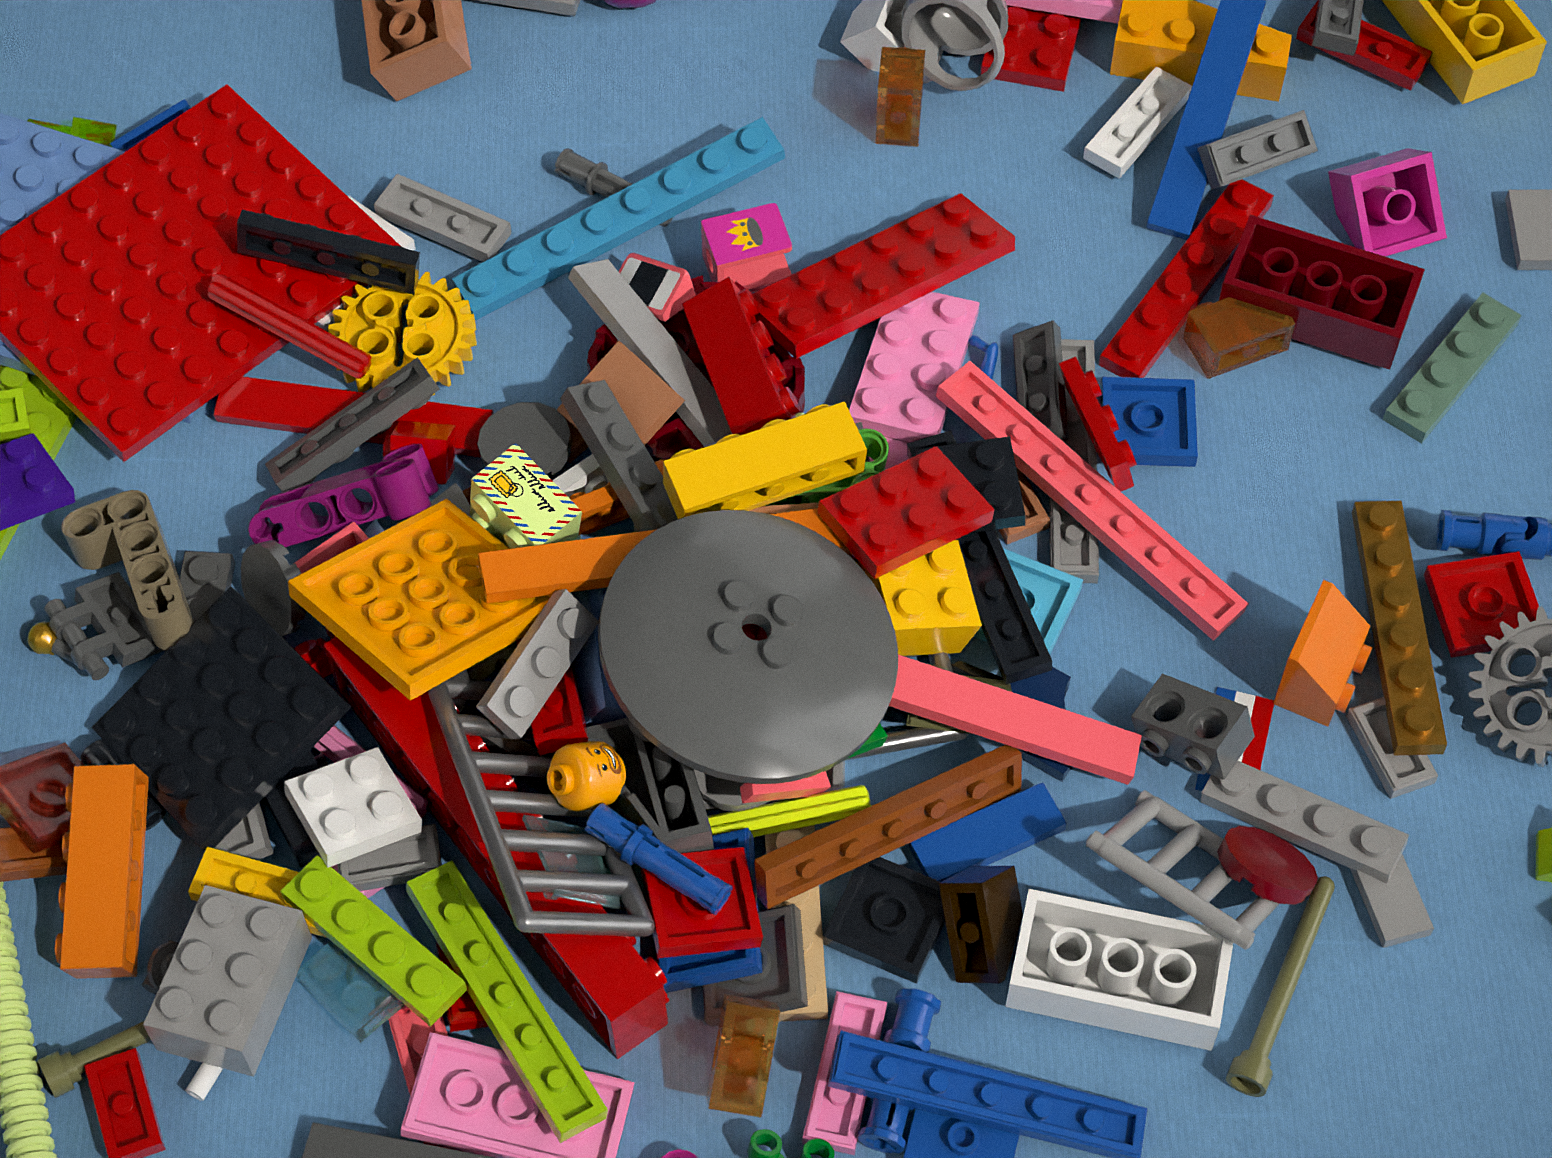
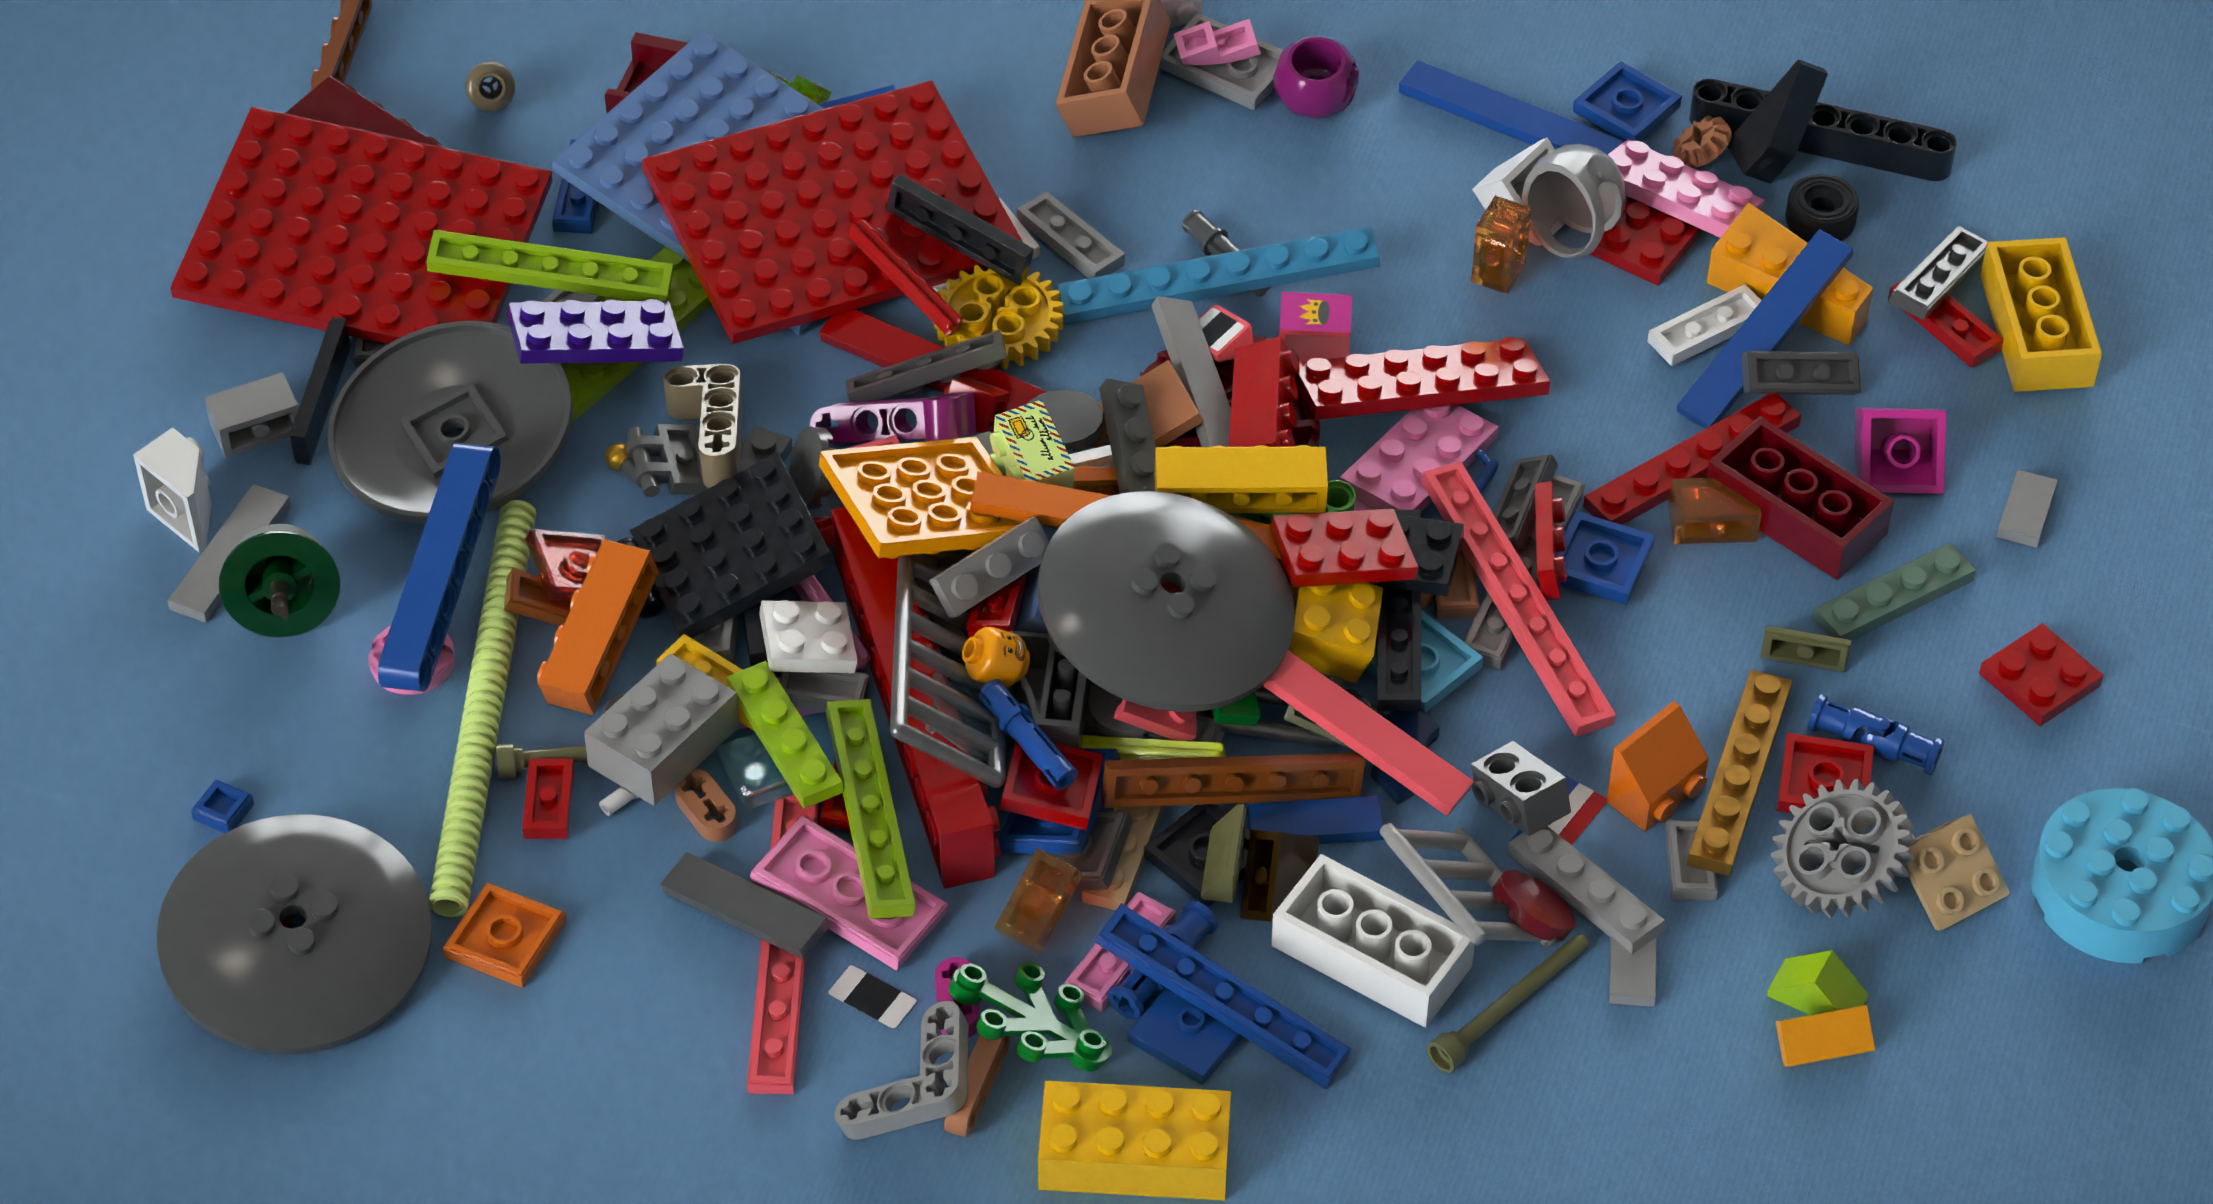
camera: 20 degrees right, 10 degrees down
(316, 1040) = (712, 800): none -> nougat beam
(920, 922) = (1224, 856): none -> olive slope
(1397, 461) = (1805, 649): none -> olive slope

